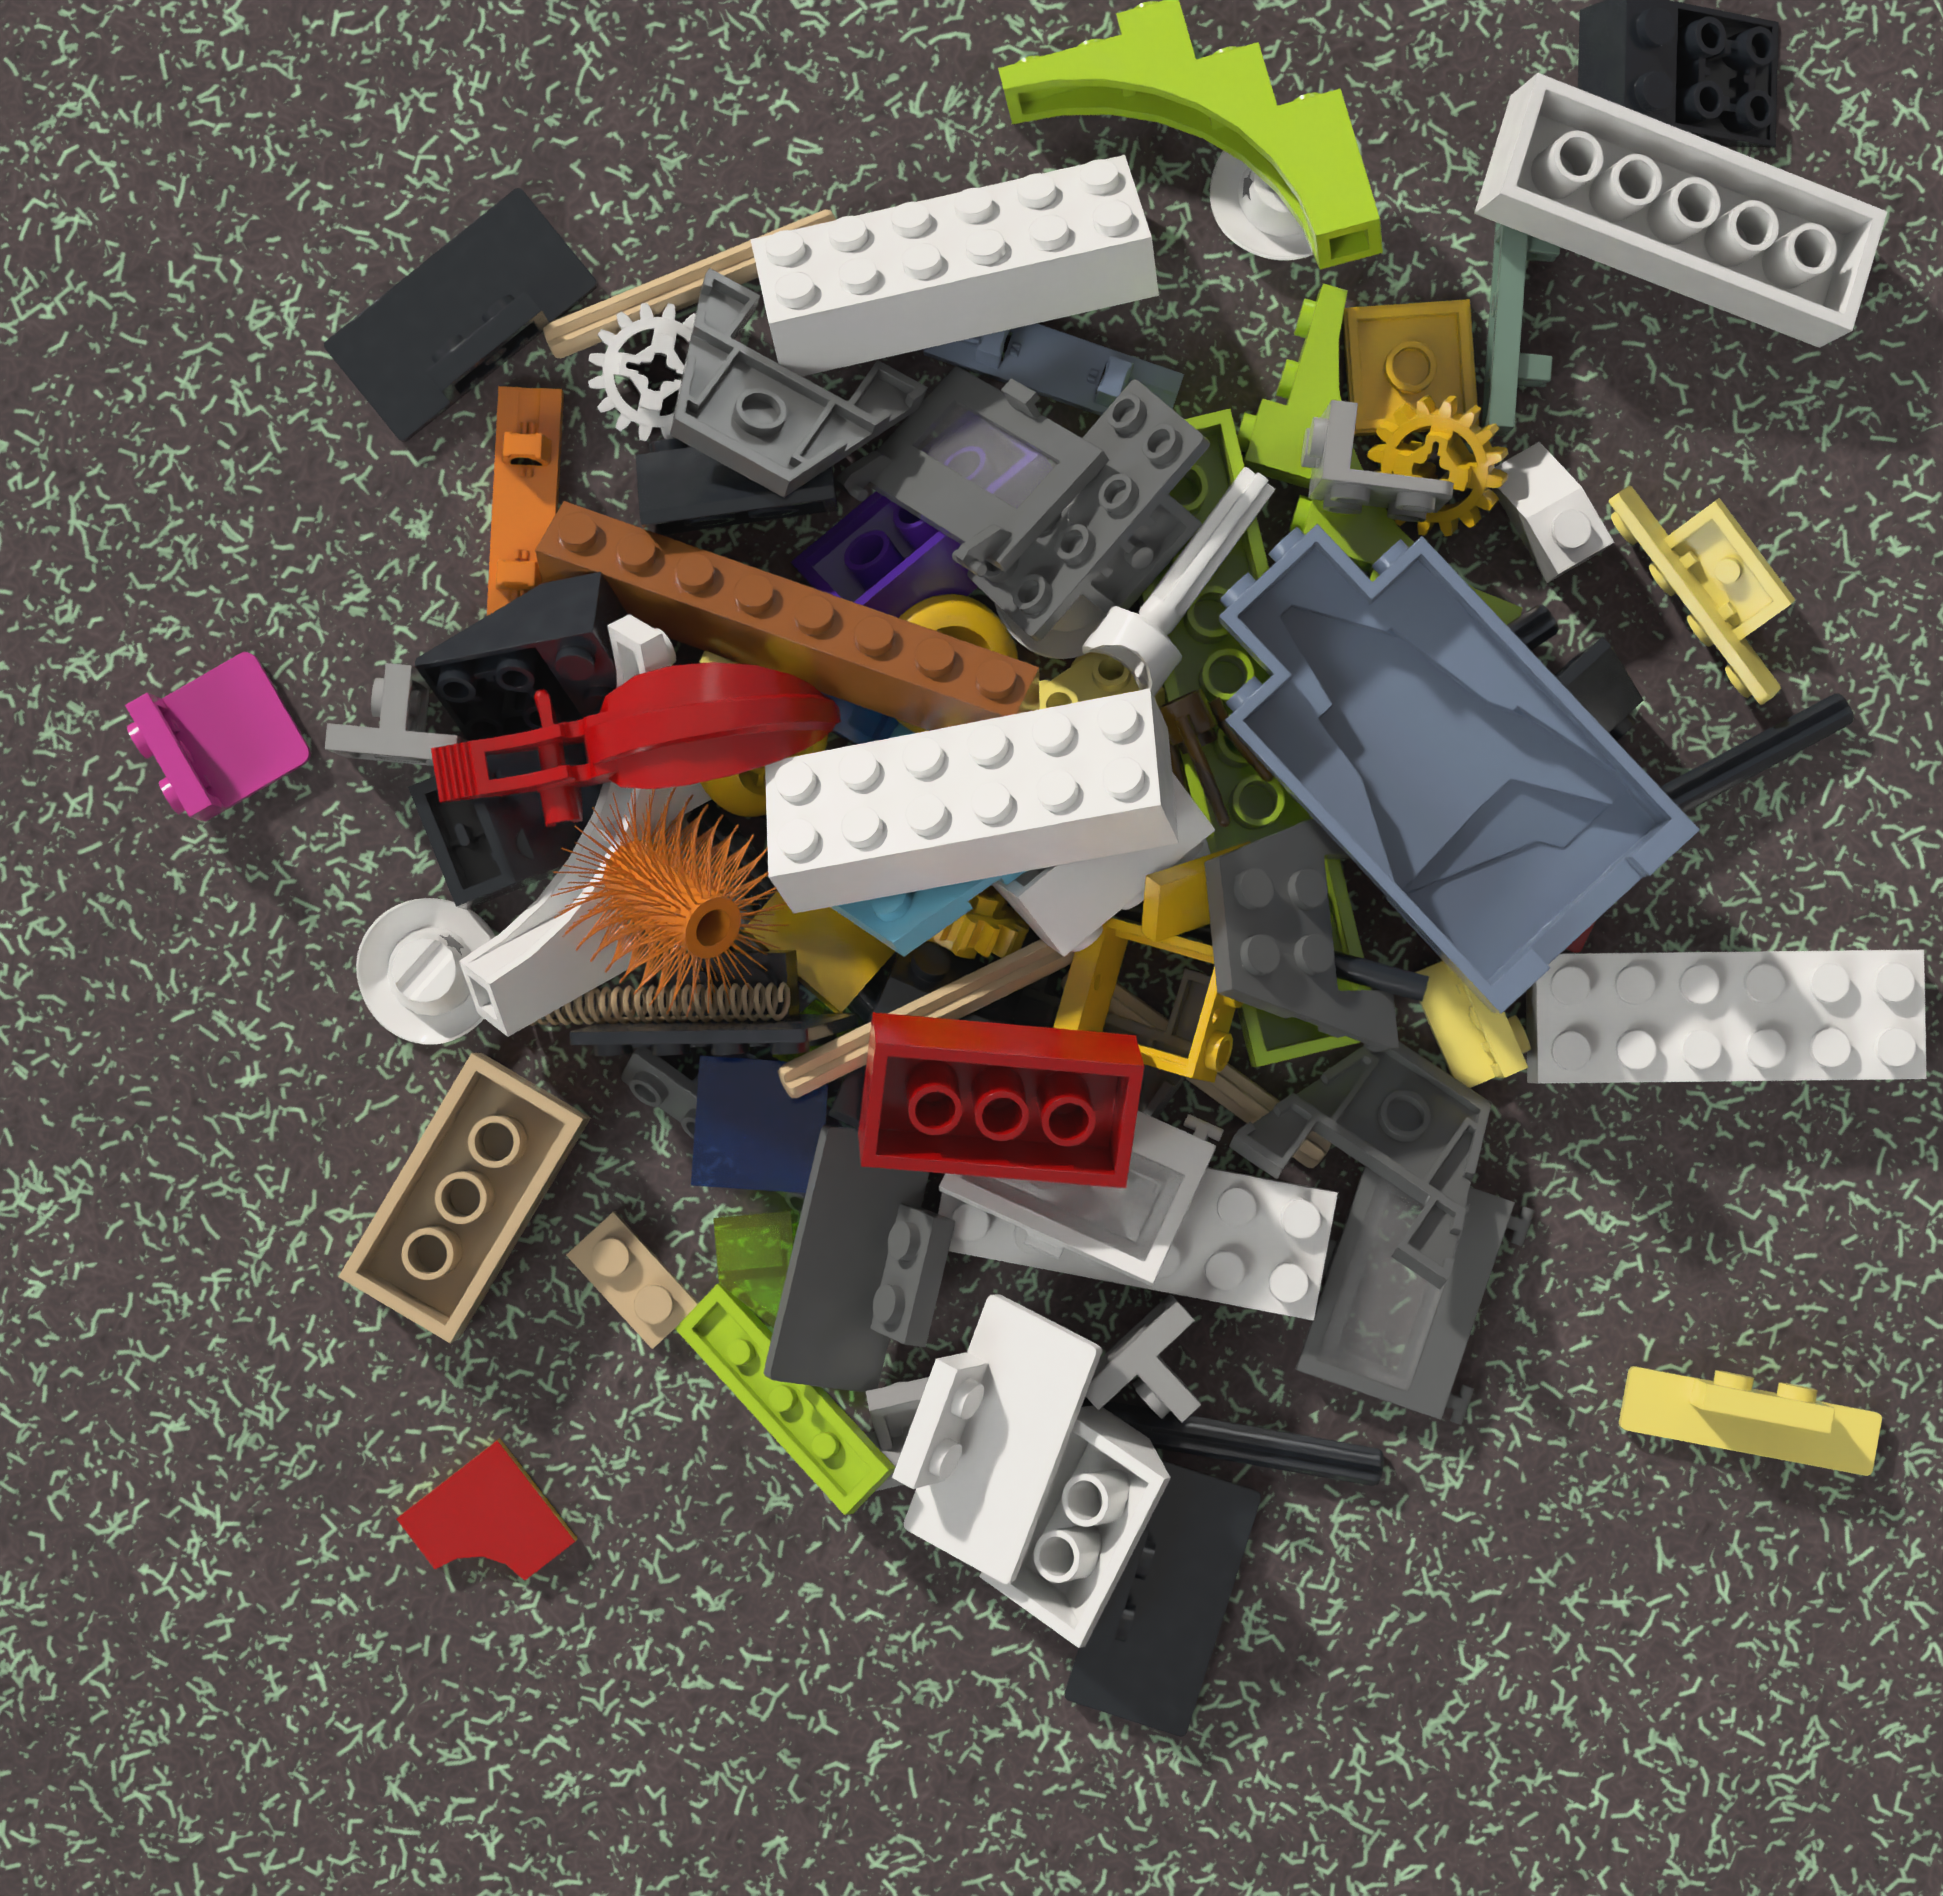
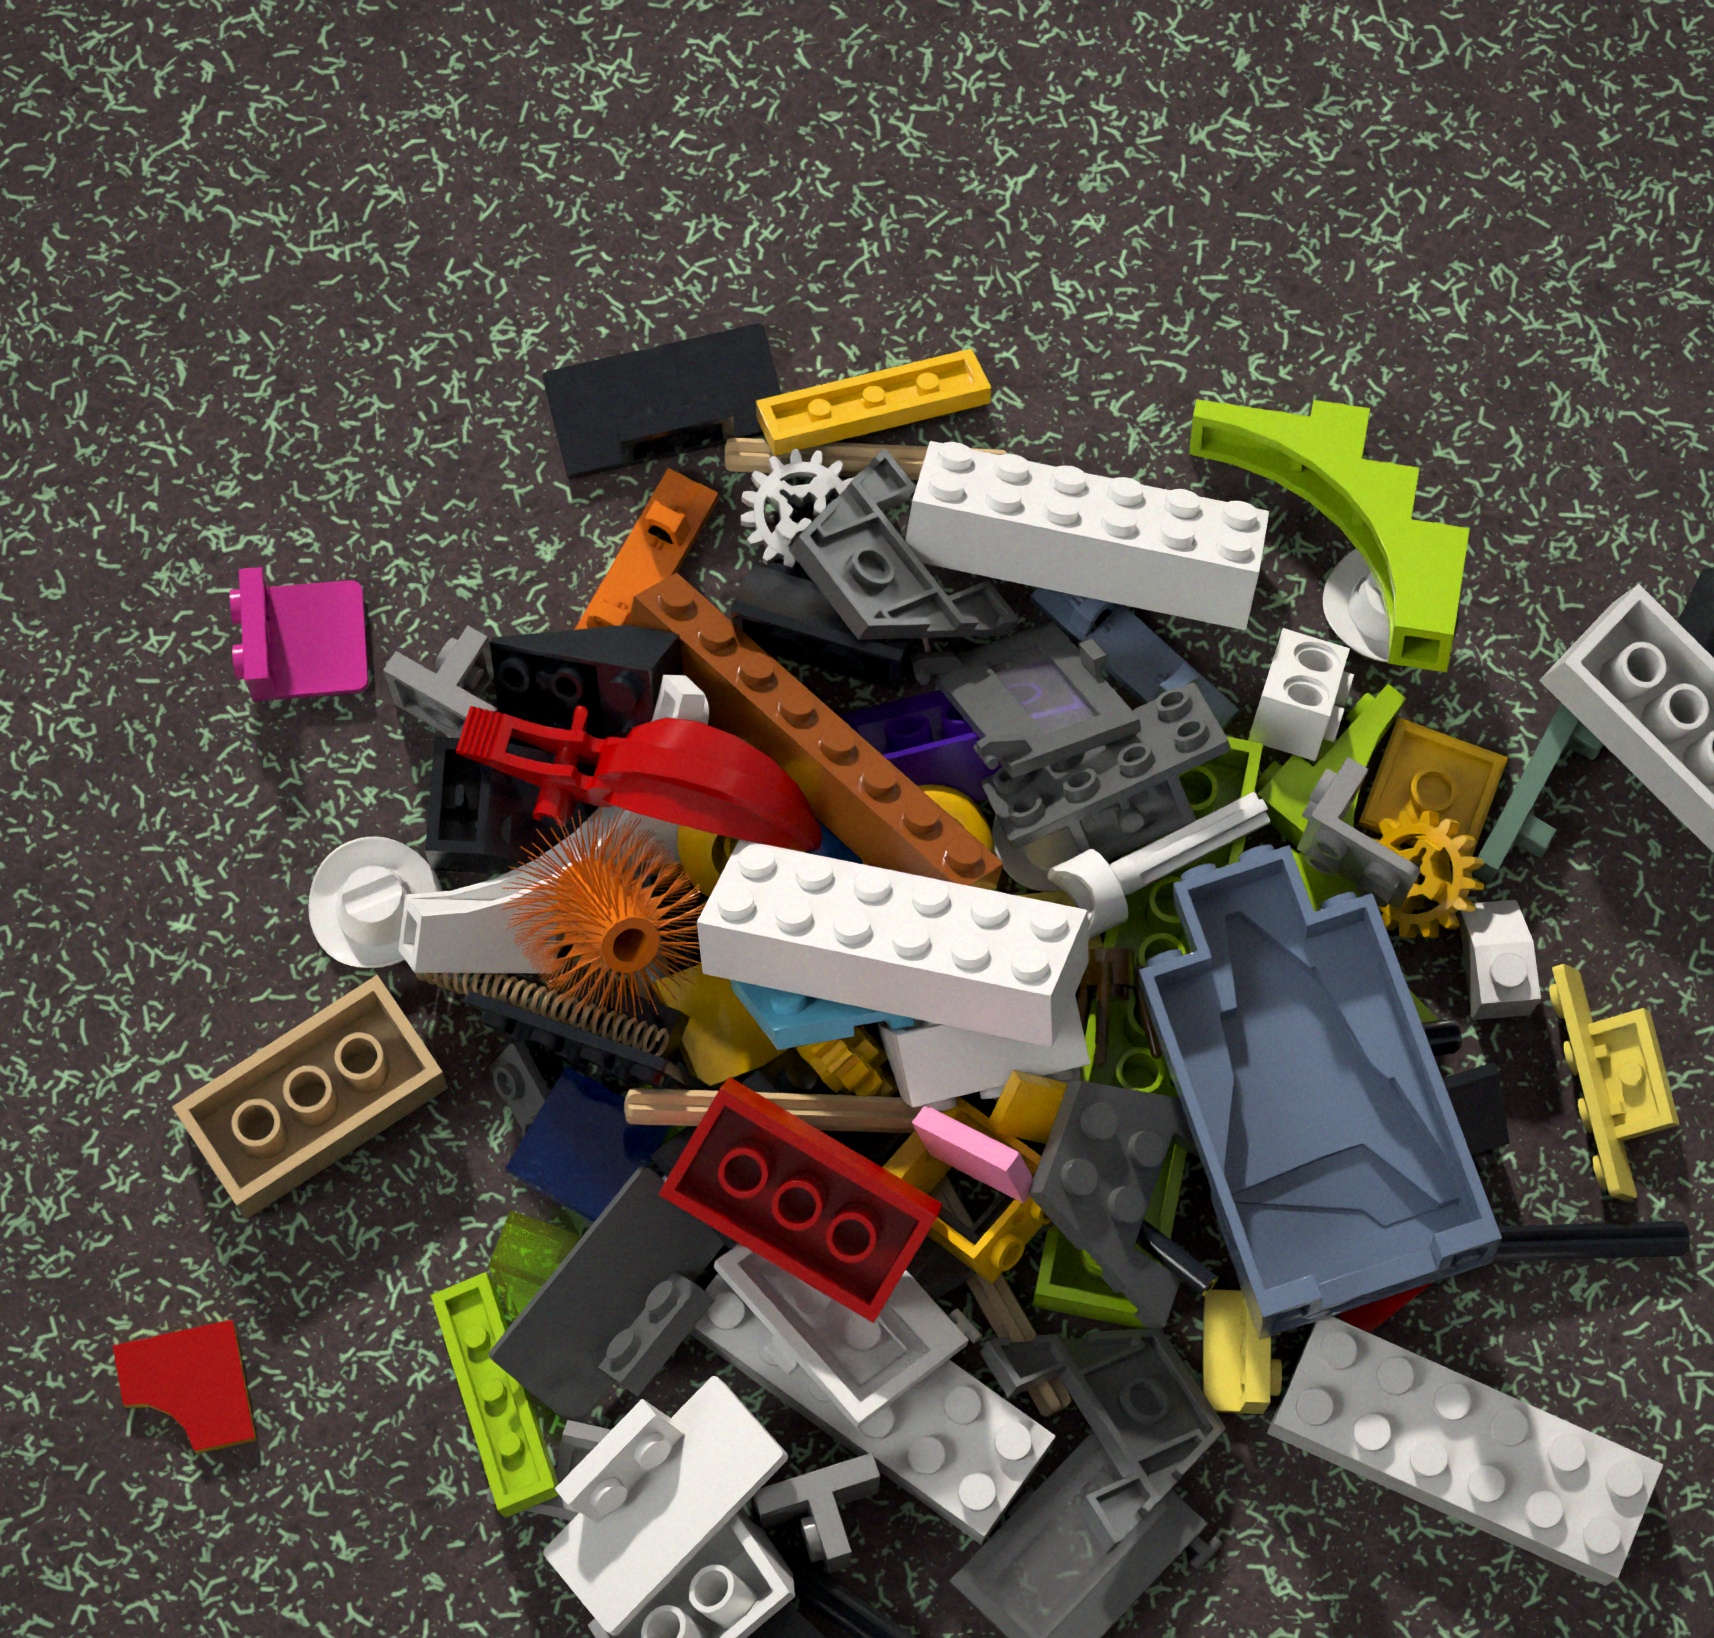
camera: 25 degrees right, 15 degrees down
(633, 1279) = (415, 1238): tan plate -> none
(672, 221) = (873, 402): none -> yellow plate
(1145, 975) = (973, 1153): none -> bright pink tile
(1242, 335) = (1302, 695): none -> white brick

